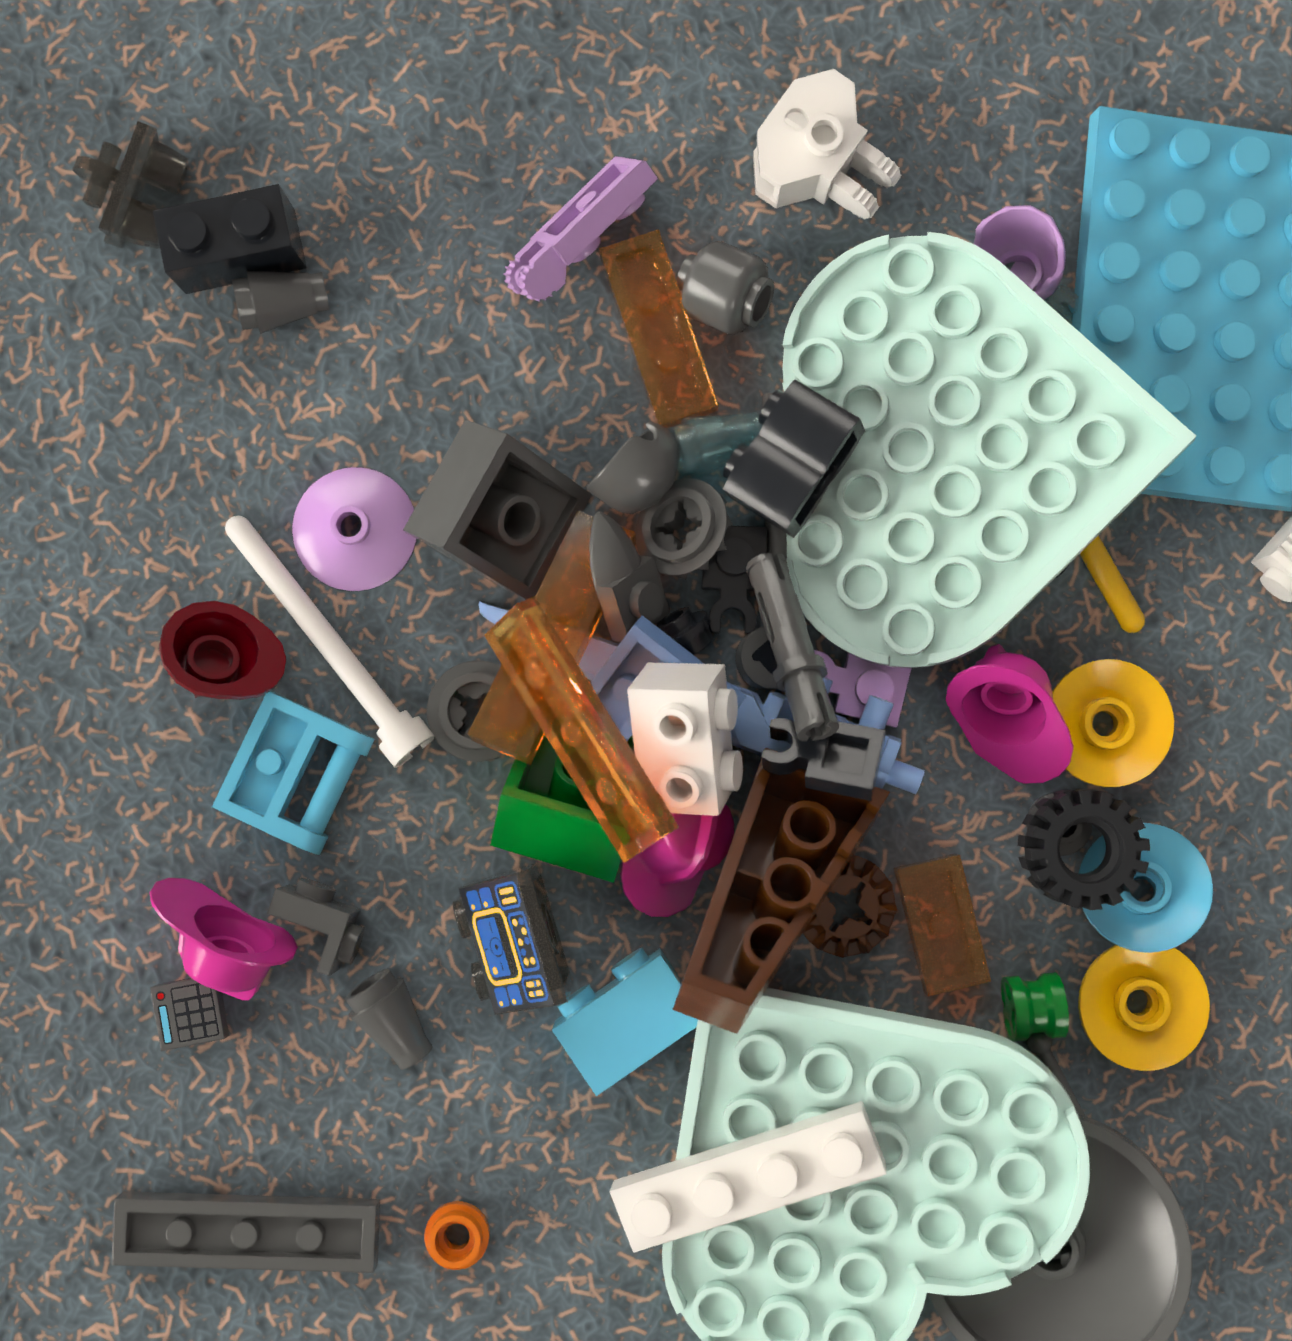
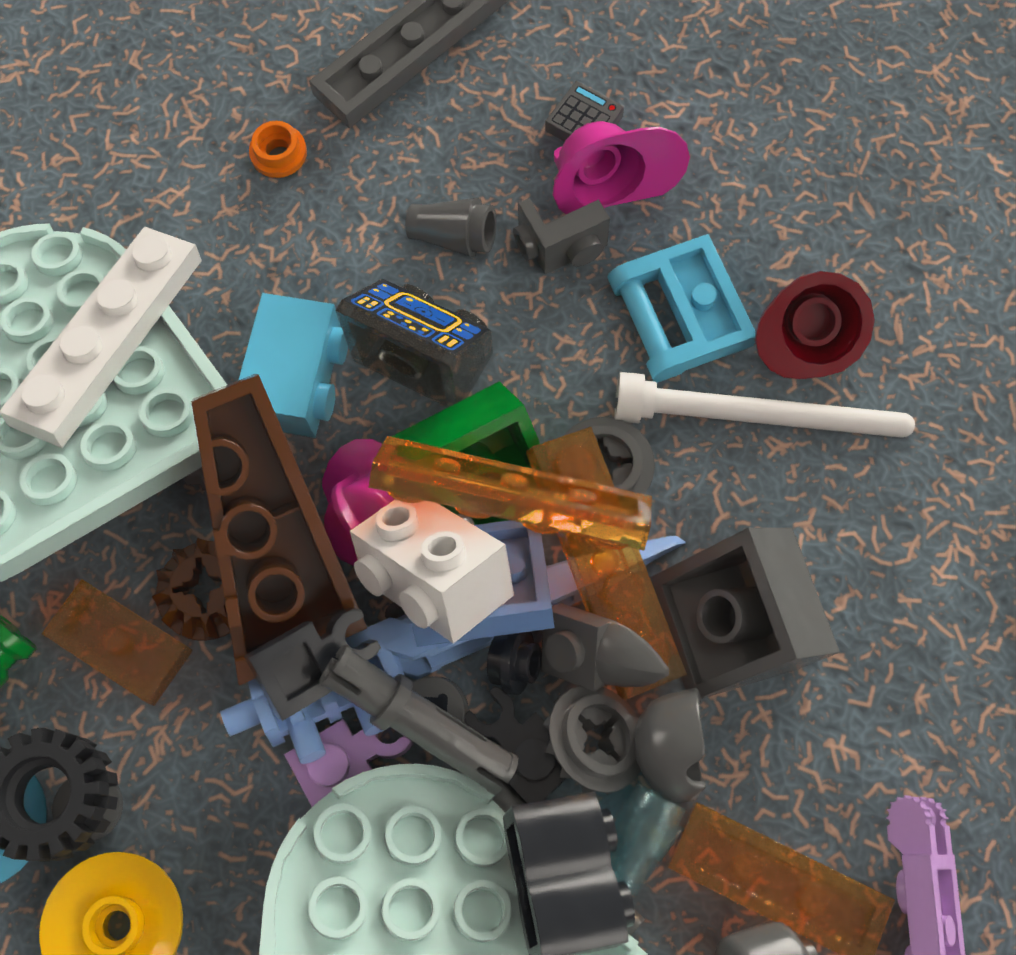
camera: 140 degrees right, 15 degrees down
(373, 553) = (823, 533): lavender dish -> none
(1011, 716) = (200, 852): dark pink piece -> none

